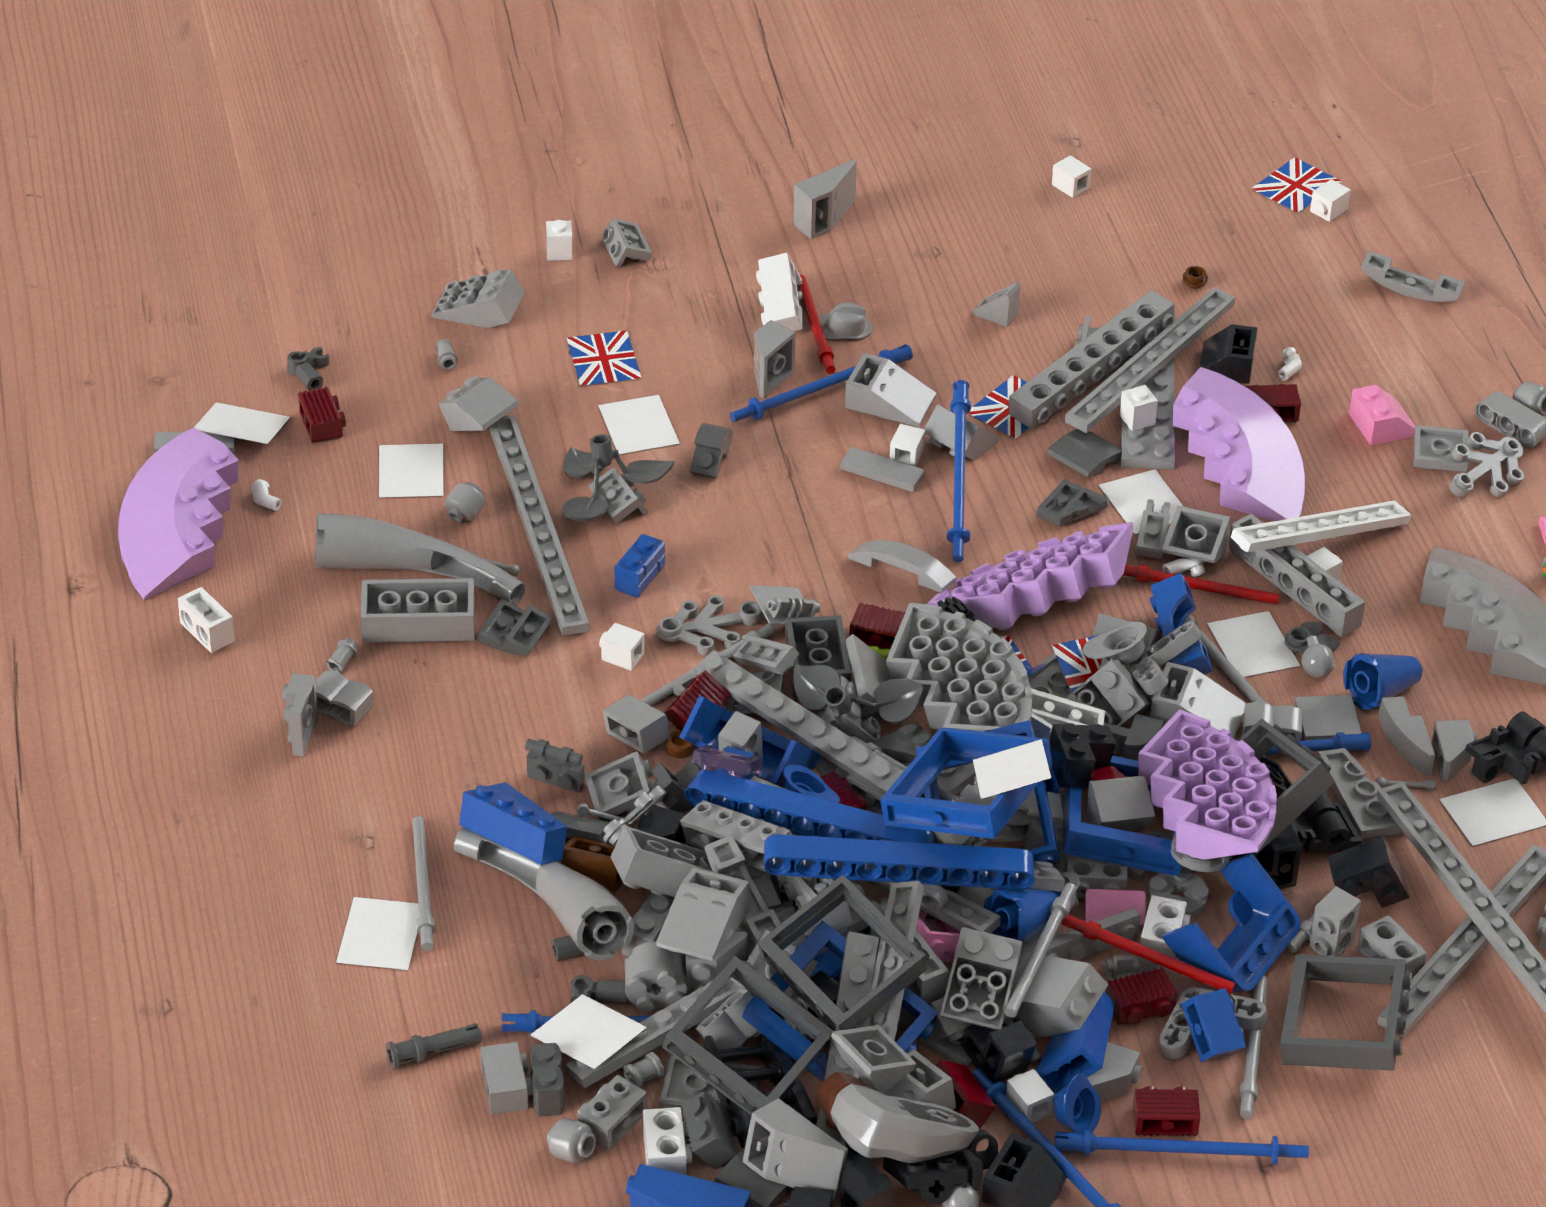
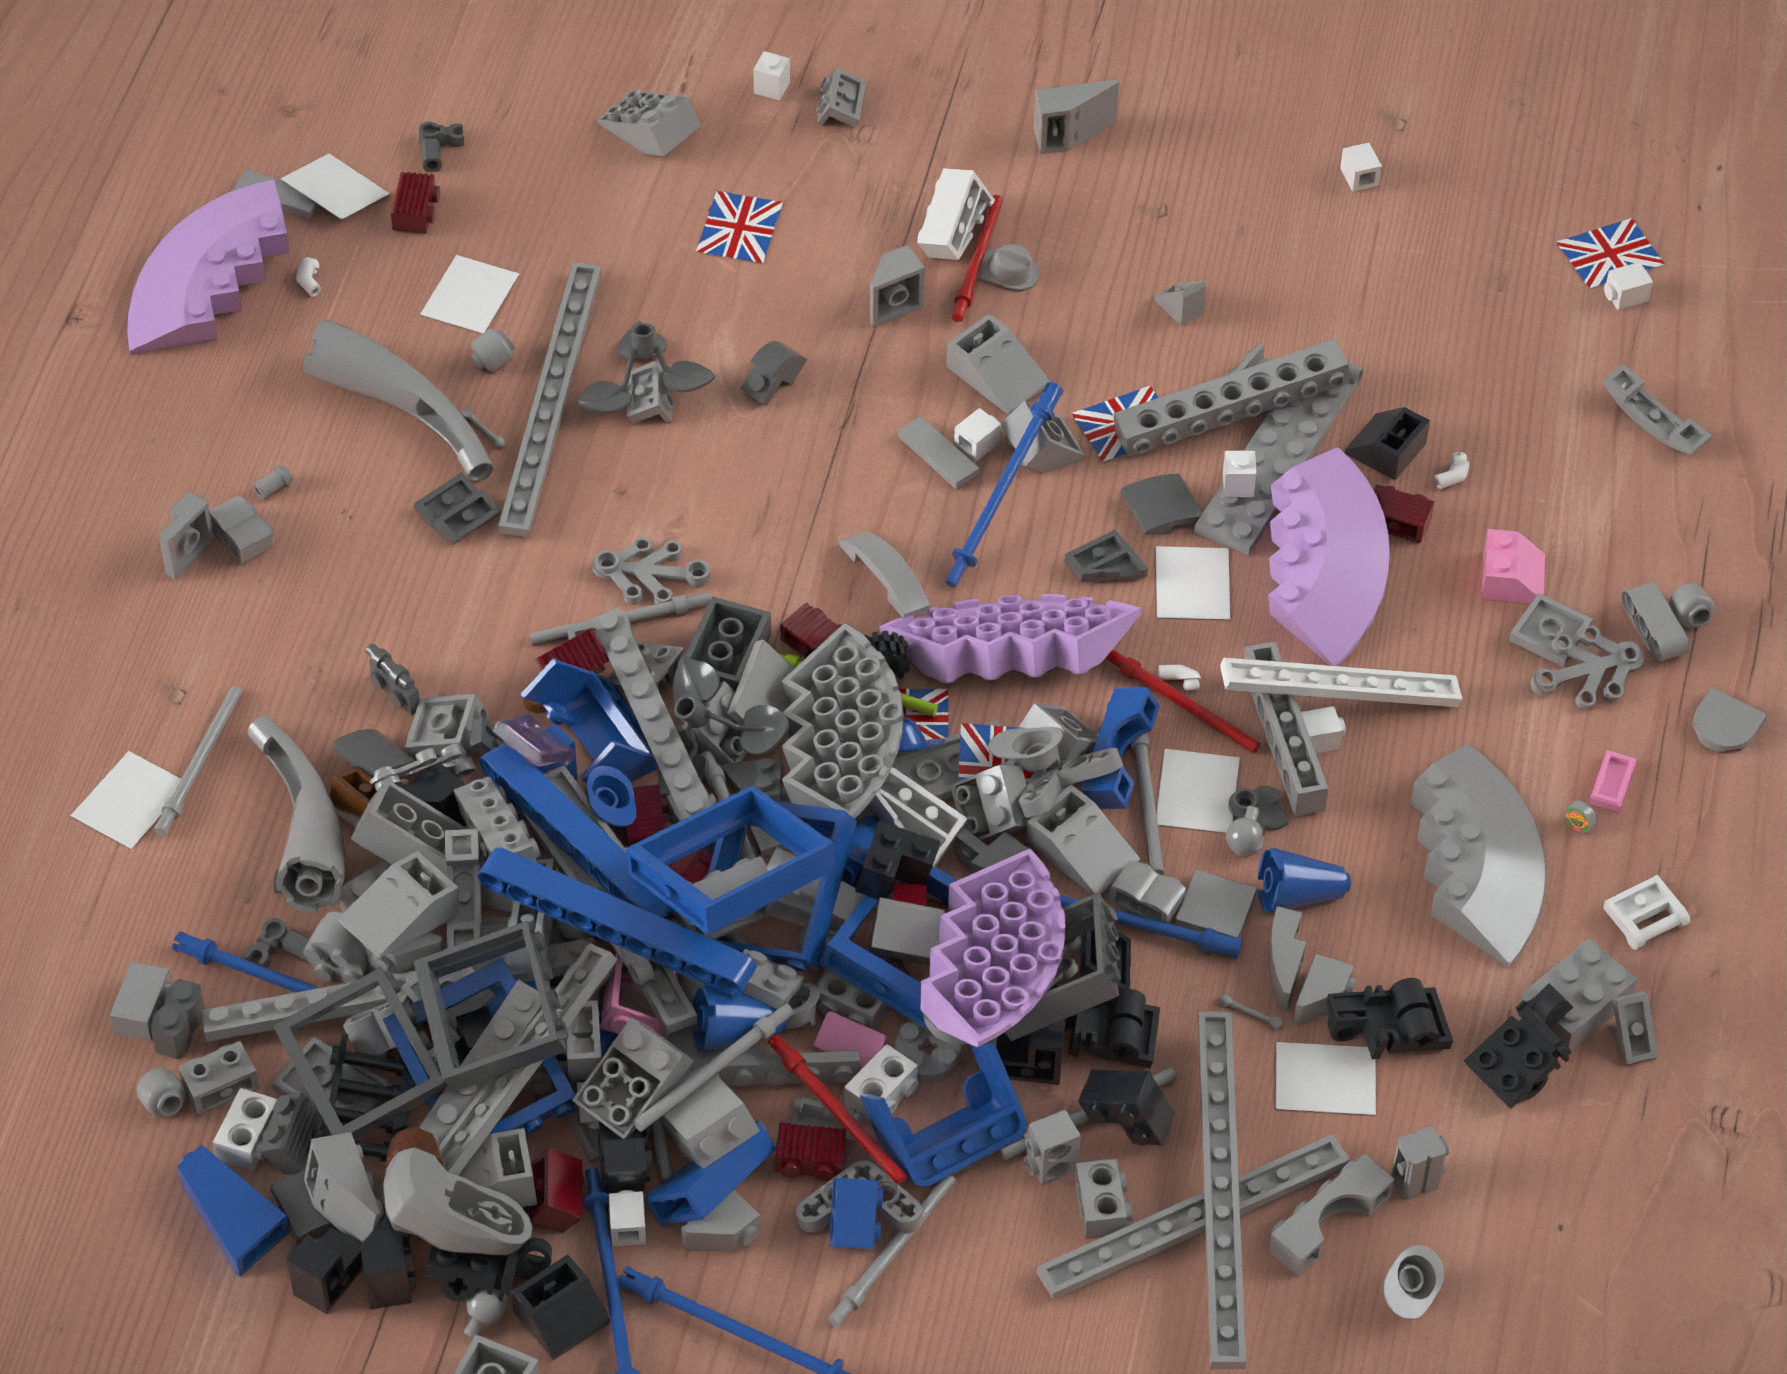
camera: 25 degrees right, 10 degrees up
(206, 619) = (162, 399): white brick -> none
(418, 610) = (368, 458): light grey brick -> none
(419, 1048) = (84, 938): dark grey pin -> none
(446, 357) = (578, 177): light grey pin -> none
(476, 404) = (566, 243): light grey slope -> none
(513, 822) = (305, 729): blue wedge -> none
(583, 810) = (391, 739): light grey hinge -> none
(588, 1031) = (242, 983): white sticker -> none
(622, 646) = (546, 567): white brick -> none
(636, 723) = (503, 660): light grey brick -> none
(638, 424) = (726, 316): white sticker -> none
(639, 565) = (618, 481): blue brick -> none
(644, 1070) = (270, 1046): light grey bush -> none
(742, 733) = (581, 722): light grey brick -> none
(756, 408) = (1021, 325): blue bar -> none
(766, 655) = (671, 630): light grey plate -> none
(783, 603) = (733, 577): light grey hinge -> none
(873, 1056) = (463, 1123): light grey slope -> none
(1011, 769) = (769, 864): white sticker -> none
(1078, 1105) = (662, 1250): blue piece -> none
(1150, 359) = (1294, 418): light grey plate -> none
(1153, 531) = (1173, 621): light grey hinge -> none
(1166, 1111) = (752, 1287): dark red brick -> none
(1195, 277) = (1418, 332): reddish brown plate -> none
(1198, 535) = (1203, 644): light grey slope -> none
(1345, 1052) = (965, 1216): dark grey window -> none
(1358, 795) = (1185, 996): light grey wing -> none

